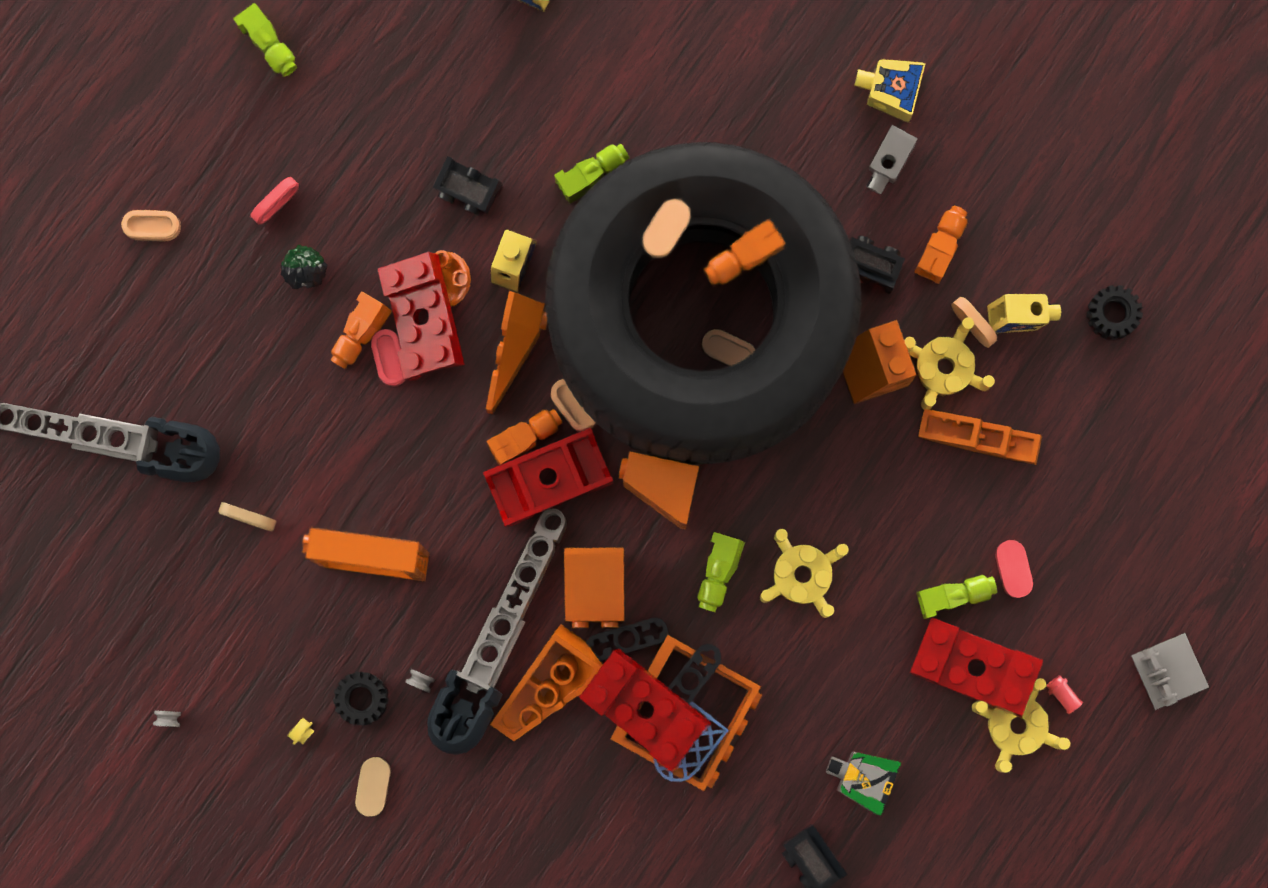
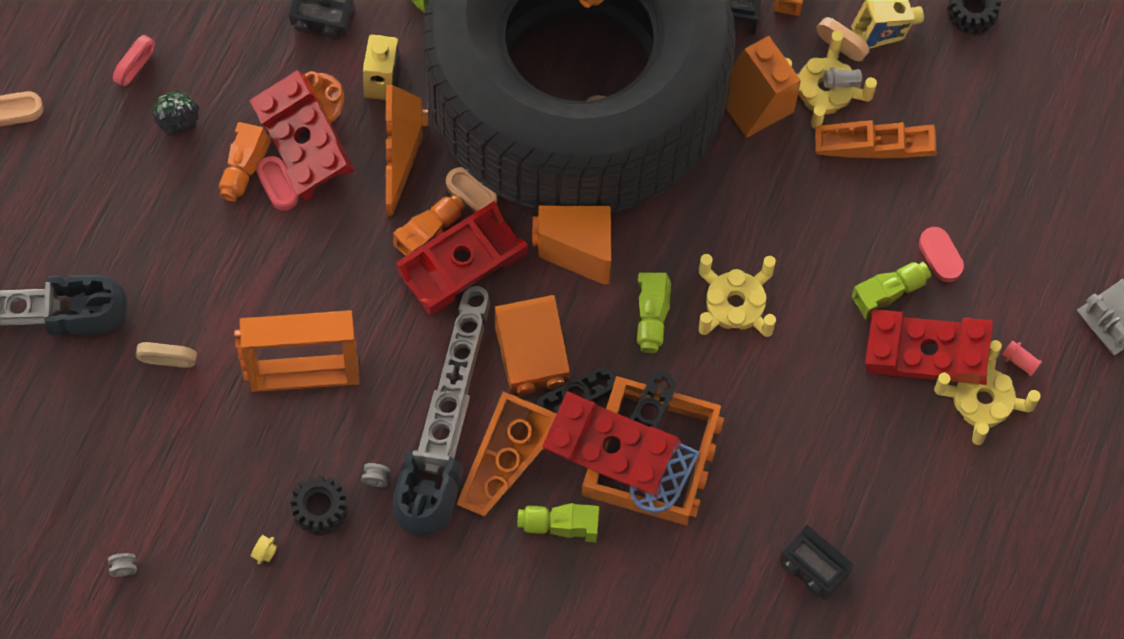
camera: 15 degrees left, 15 degrees down
(373, 786) = (349, 589): tan tile -> none
(587, 765) = (564, 520): none -> lime piece
(865, 779) = (847, 476): torso -> none
(962, 368) = (842, 78): none -> light grey pin

